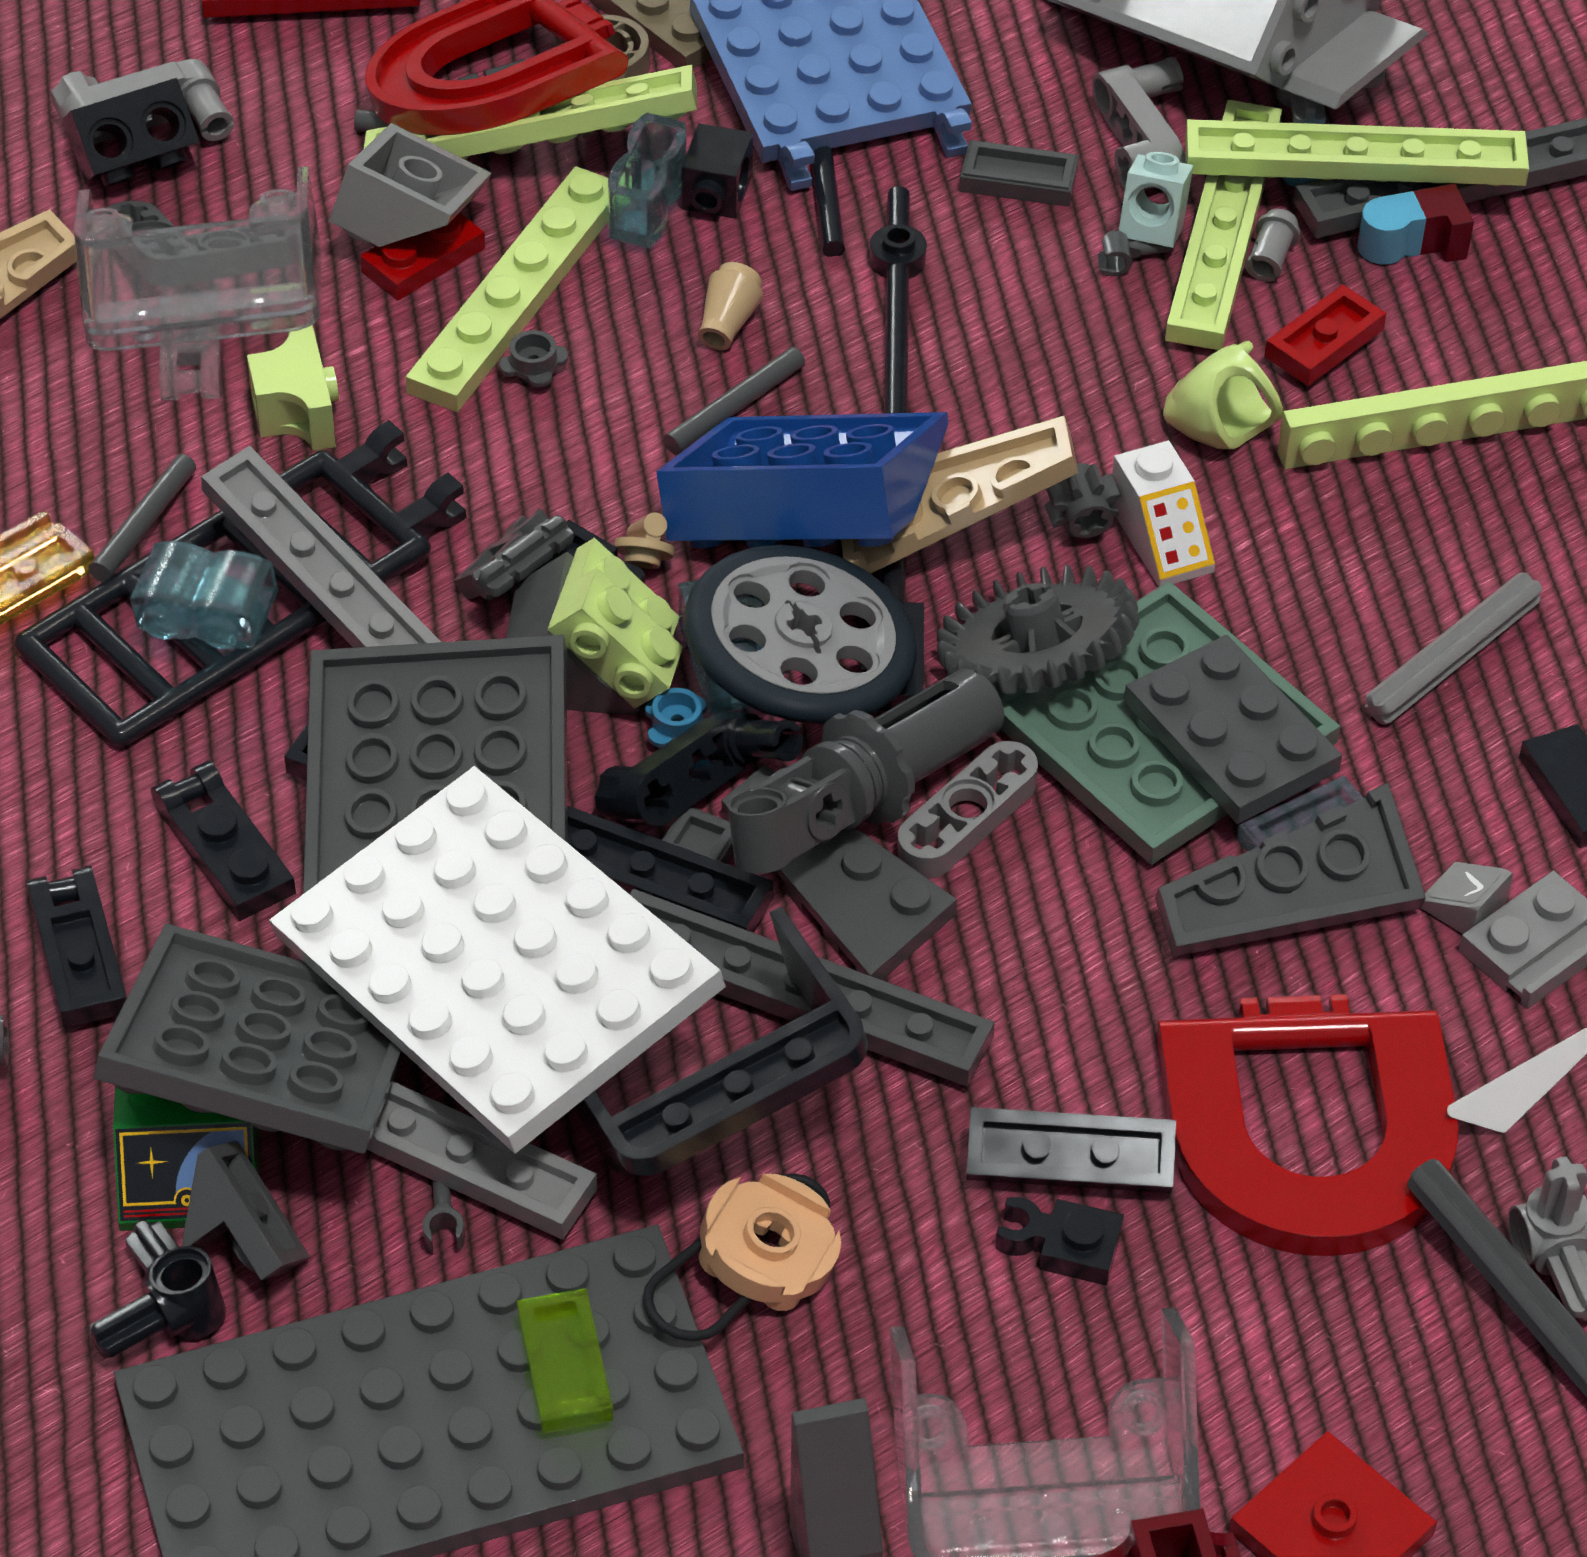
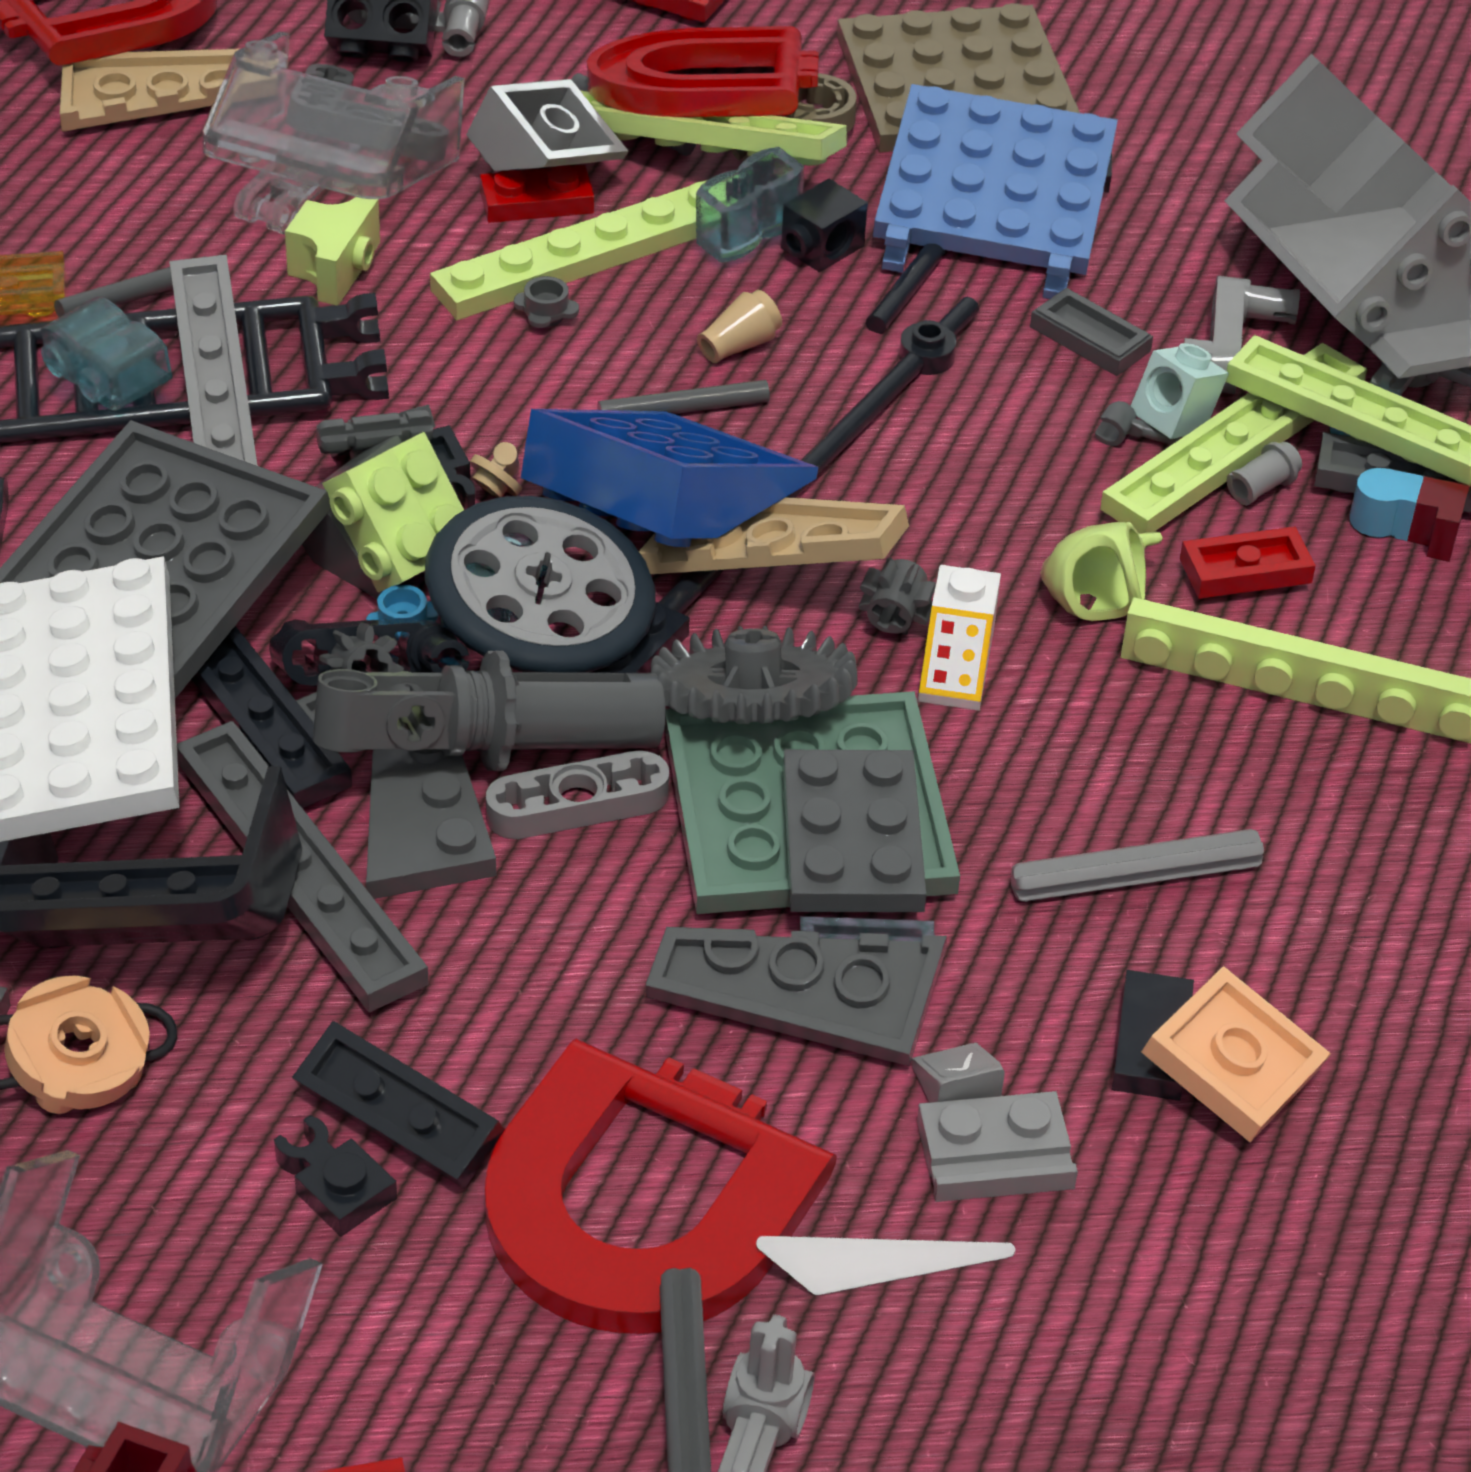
camera: 30 degrees right, 5 degrees down
(710, 779) = (356, 647): none -> dark grey gear

